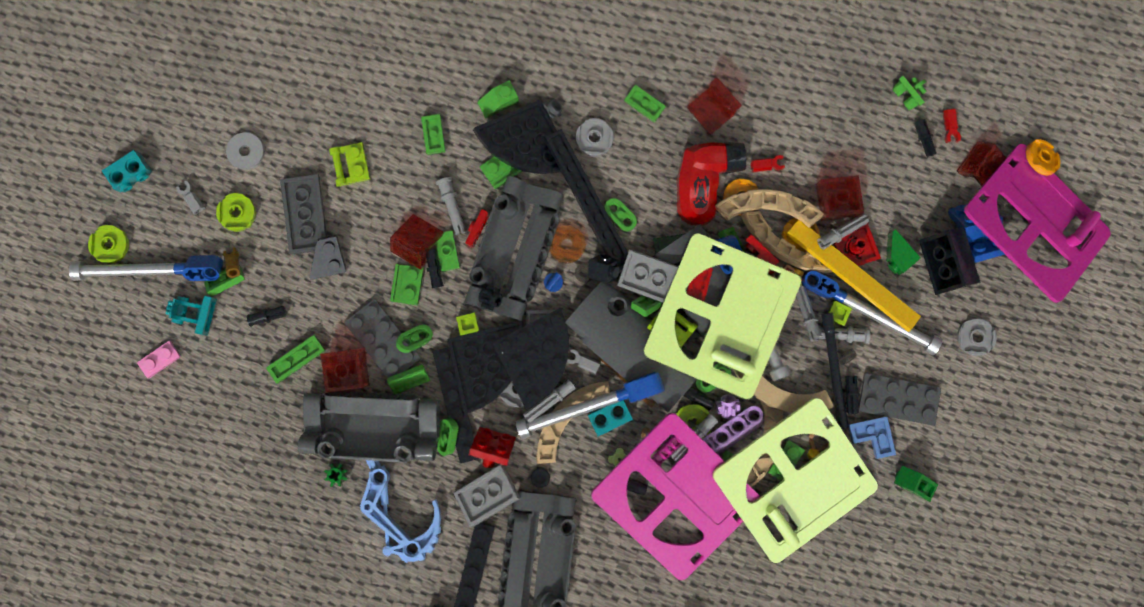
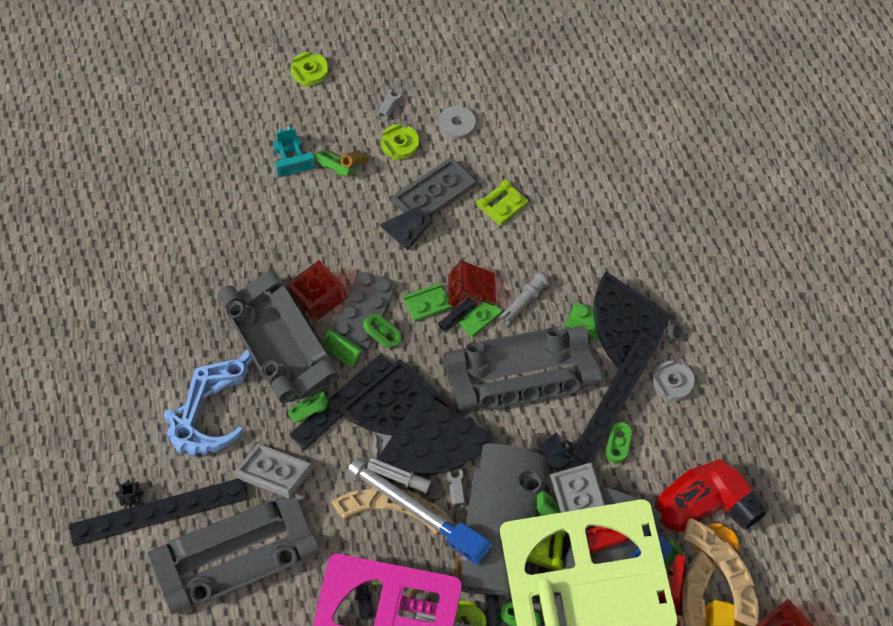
camera: 55 degrees right, 25 degrees down
(126, 167) = (379, 49): teal brick -> none
(159, 359) = (234, 153): bright pink plate -> none
(195, 269) = (331, 137): piece -> none
(266, 315) = (324, 209): black axle -> none
(295, 359) = (300, 250): bright green plate -> none
(332, 471) = (215, 336): green gear -> none
(433, 134) = (576, 250): bright green plate -> none
(467, 324) = (425, 368): lime plate -> none
(476, 228) = (516, 327): red plate -> none
(490, 297) = (462, 369): black gear -> none
(492, 447) = (323, 449): red plate -> none
(498, 99) = (648, 283): bright green slope -> none
(540, 477) = (319, 513): black tile -> none
(553, 282) = (514, 420): blue plate -> none
(577, 249) = (555, 424): clear orange tile -> none
(611, 421) = (415, 544): teal brick -> none
(644, 103) = (737, 406): bright green plate -> none
(714, 106) = (781, 468): clear red bracket -> none
(766, 164) = (765, 548): red bar -> none

